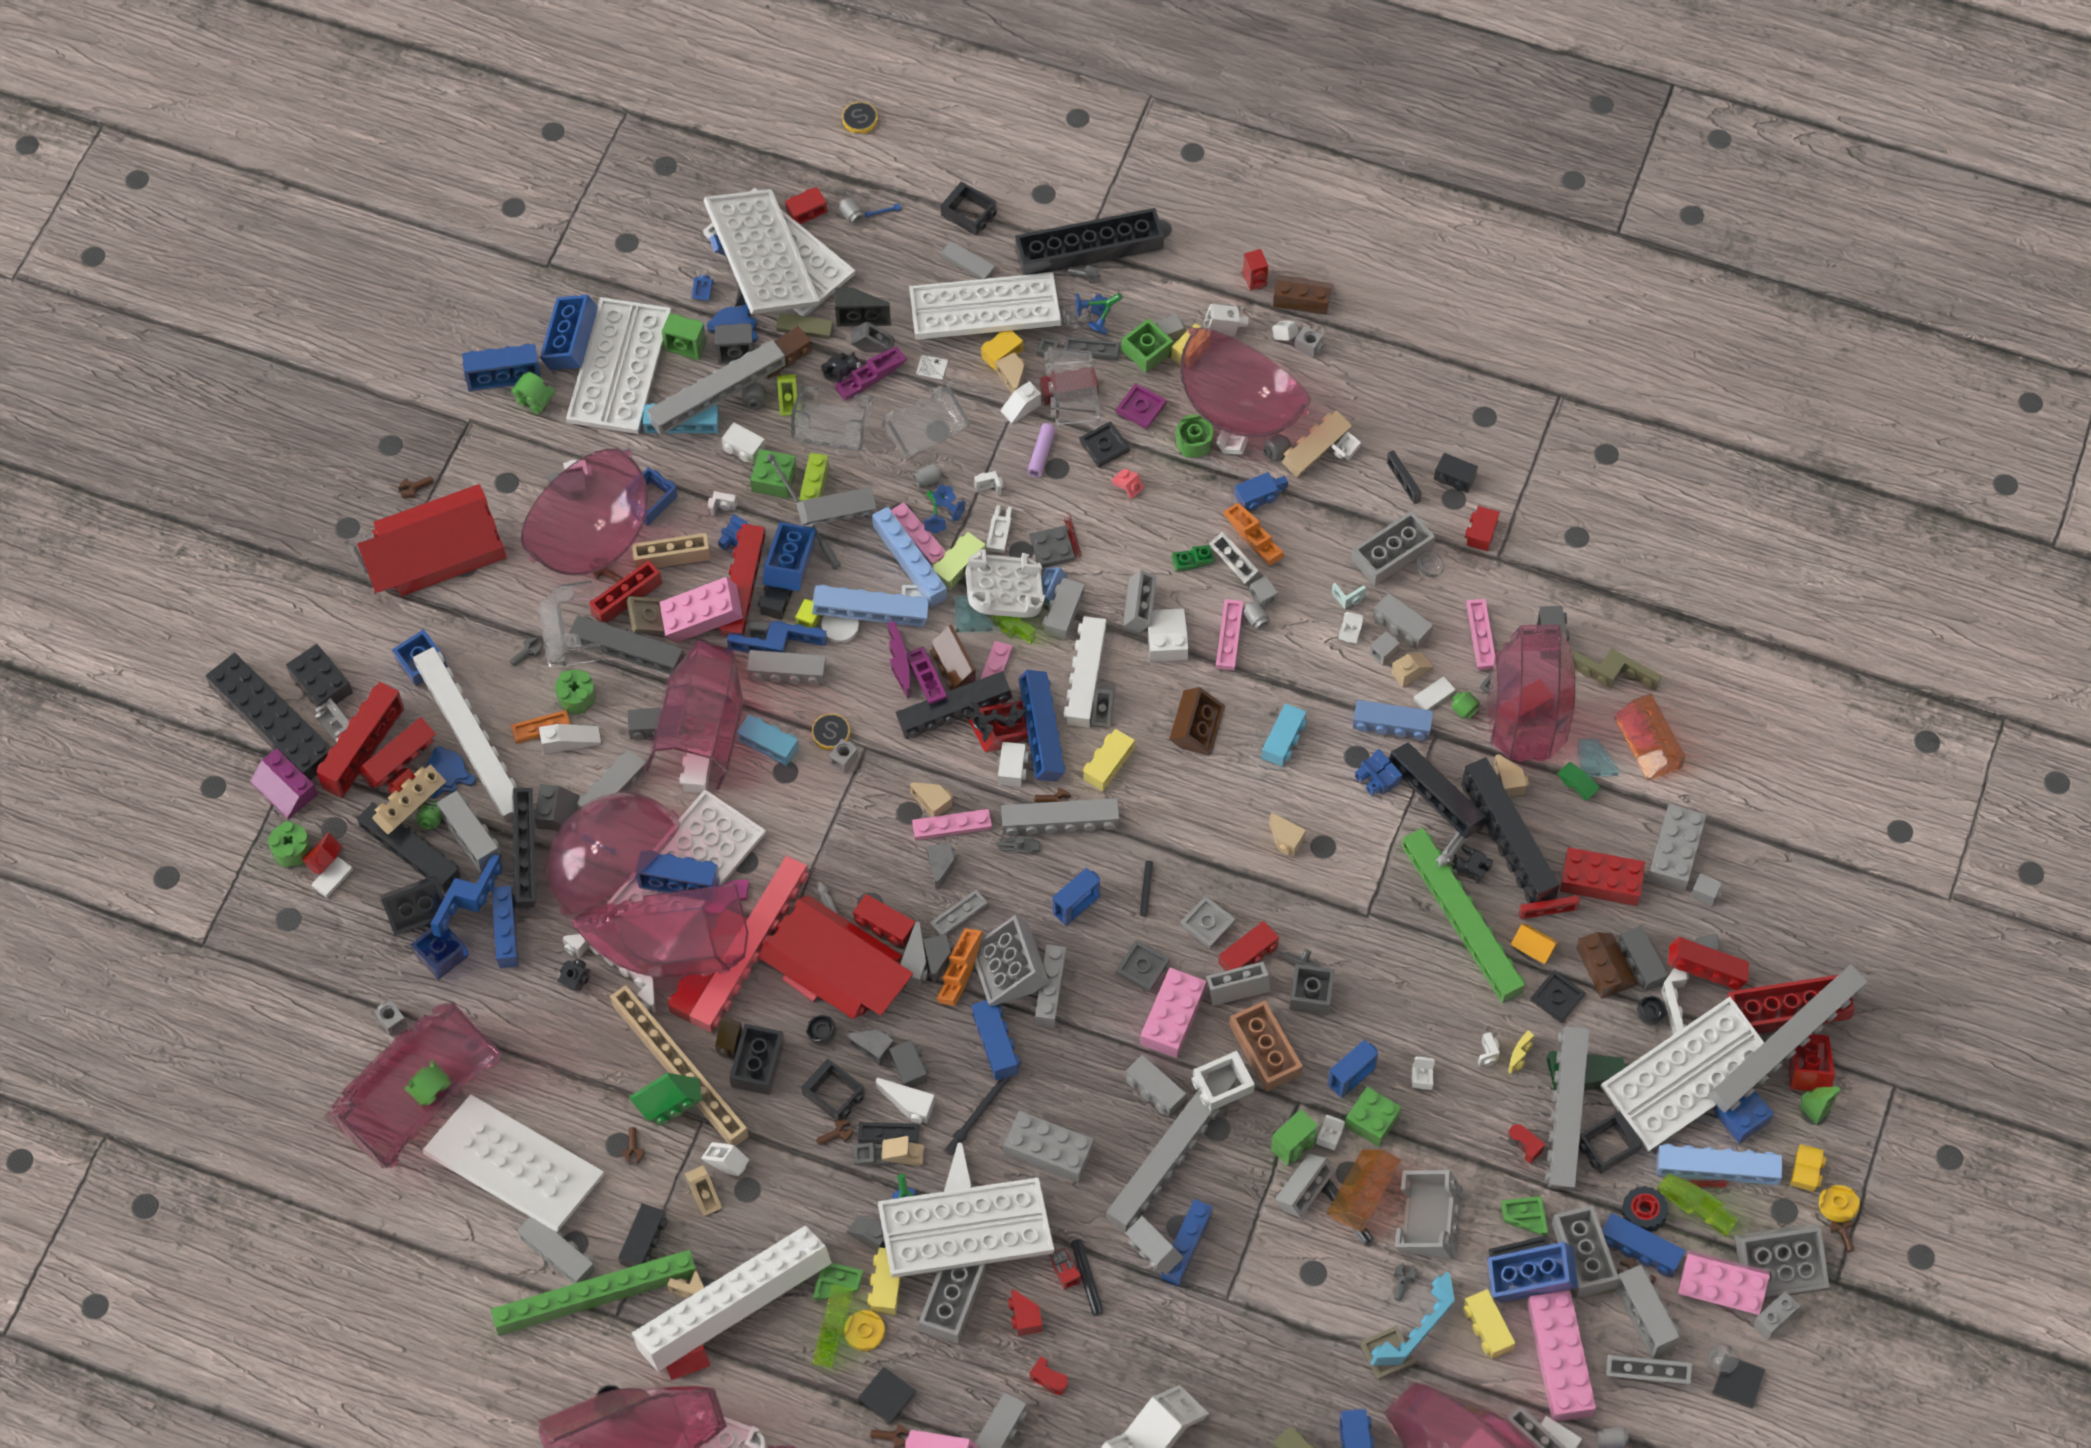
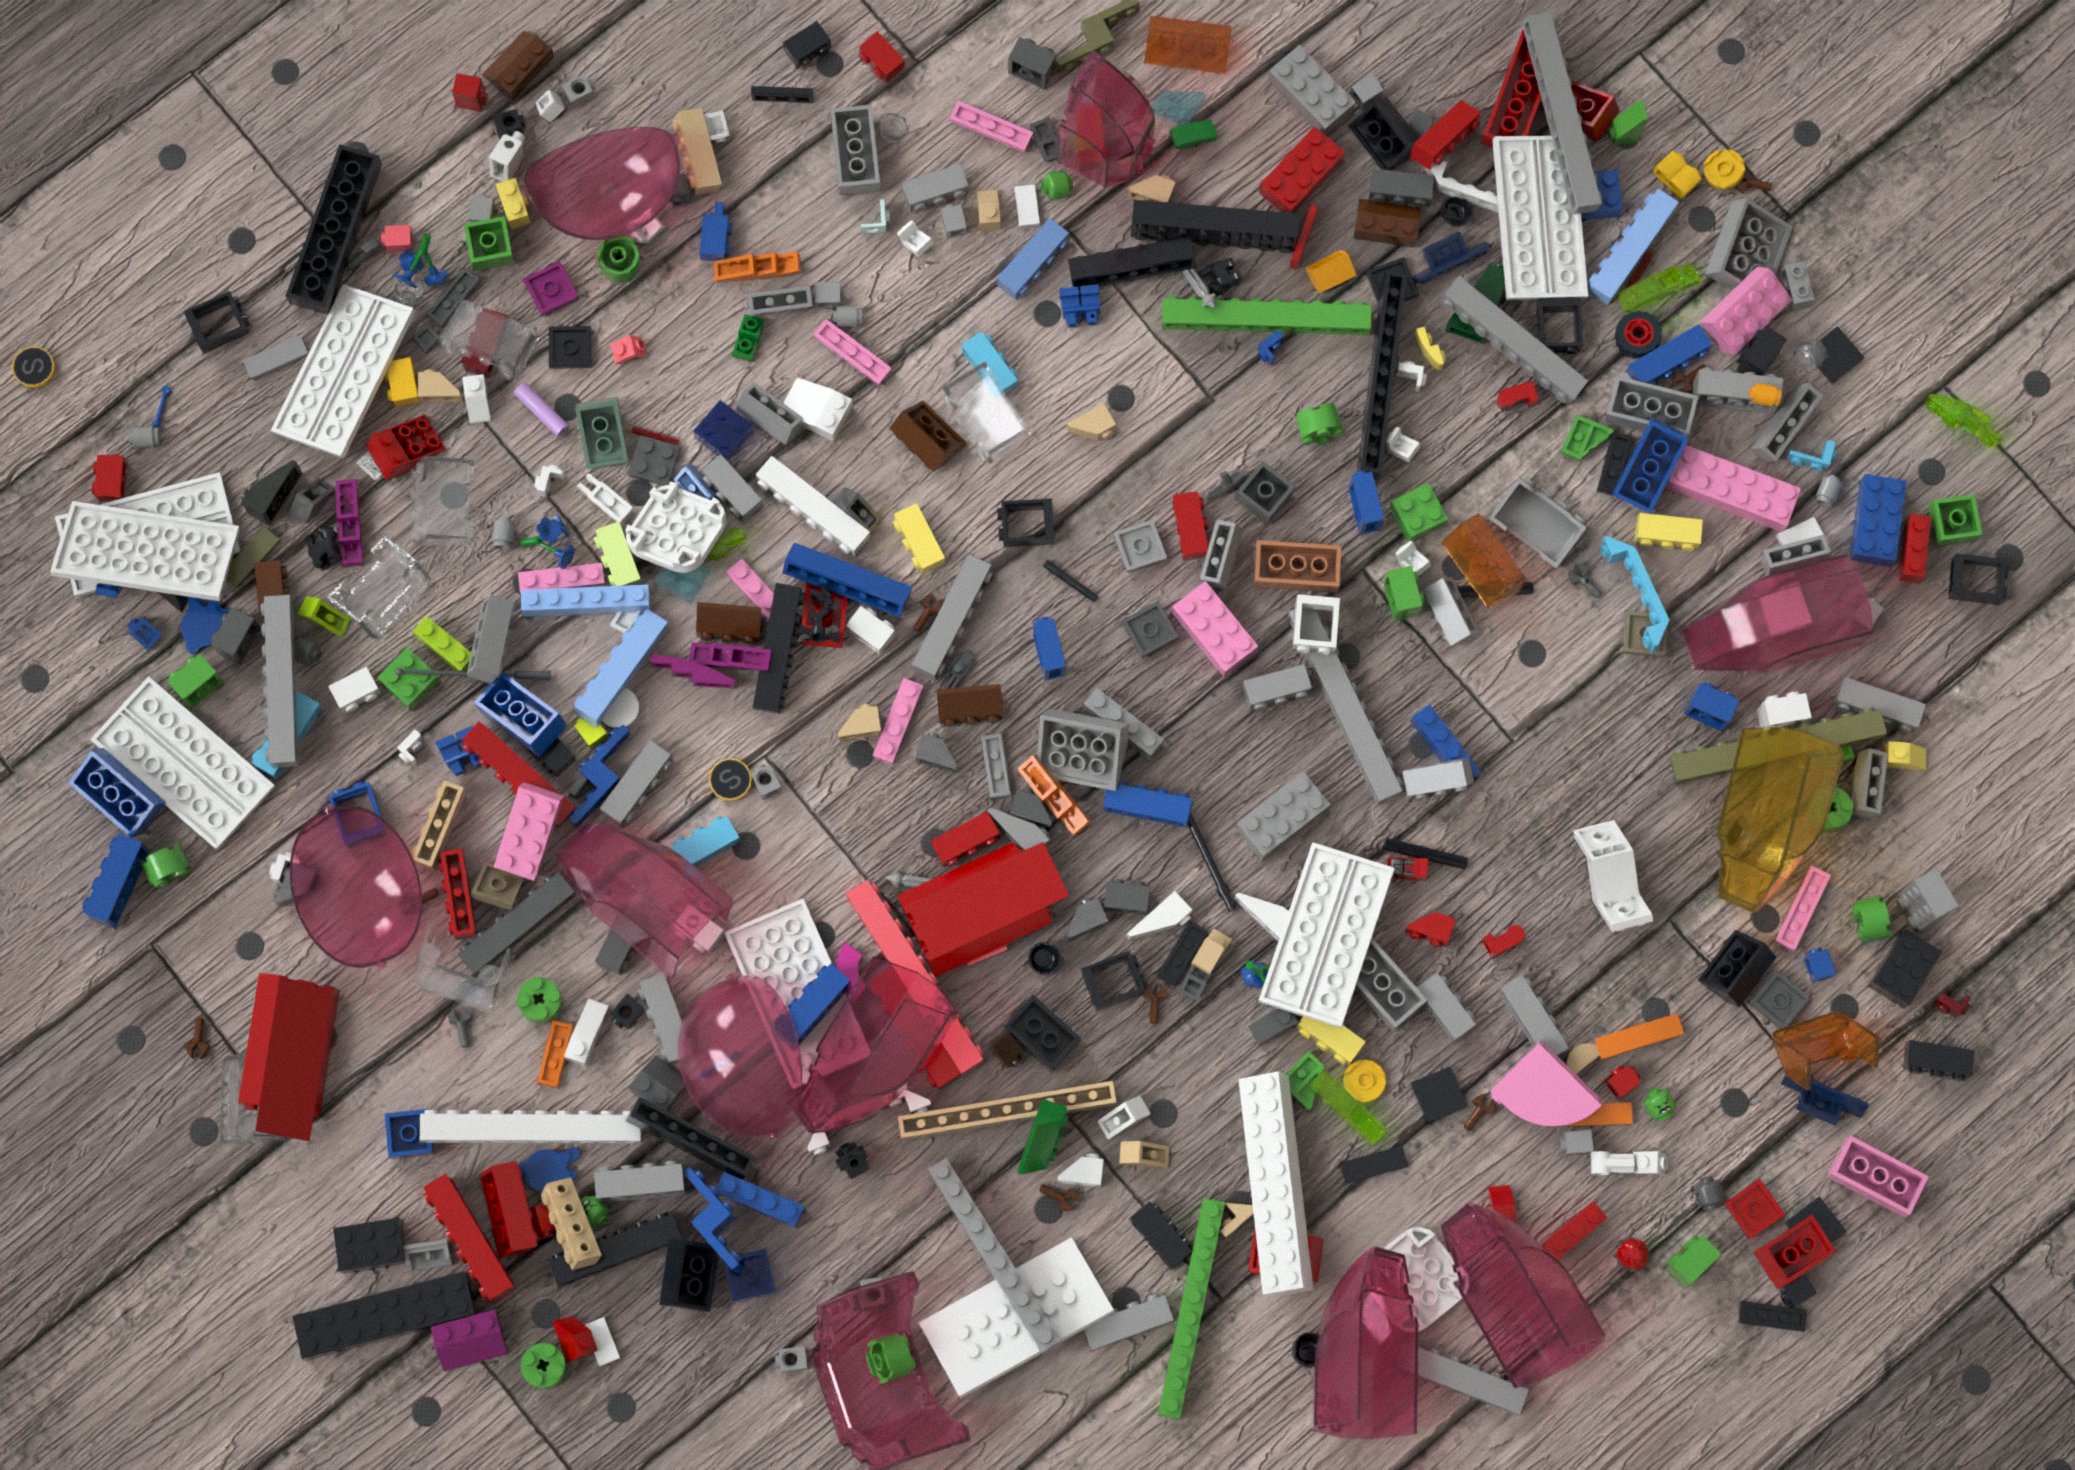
camera: 65 degrees left, 15 degrees up
(550, 1117) = (995, 1258): none -> light grey brick
(606, 761) = (627, 1002): none -> black brick
(662, 1151) = (1085, 1172): none -> white slope
(797, 1375) = (1373, 1165): none -> black tile
(951, 370) = (403, 445): none -> red slope
(964, 1360) = (1446, 1007): none -> light grey brick
(995, 864) = (969, 705): none -> reddish brown slope
(1050, 498) = (602, 432): none -> sand green slope
(1105, 578) = (723, 431): none -> clear blue brick
(1111, 285) = (397, 238): none -> coral brick
(1181, 845) = (1024, 505): none -> black window
(1240, 747) = (985, 413): none -> clear windscreen
(1248, 304) = (504, 117): none -> black brick
(1396, 998) = (1319, 424): none -> bright green brick
(1440, 929) = (1272, 343): none -> blue bracket
(1471, 1024) = (1381, 373): none -> black brick
(1610, 1022) = (1446, 254): none -> dark blue bracket
(1643, 1420) = (1817, 464): none -> medium azure bracket
(1652, 1326) = (1765, 394): none -> light orange brick
(1680, 917) = (1384, 134): none -> black slope
(1694, 1314) = (1760, 351): none -> black brick

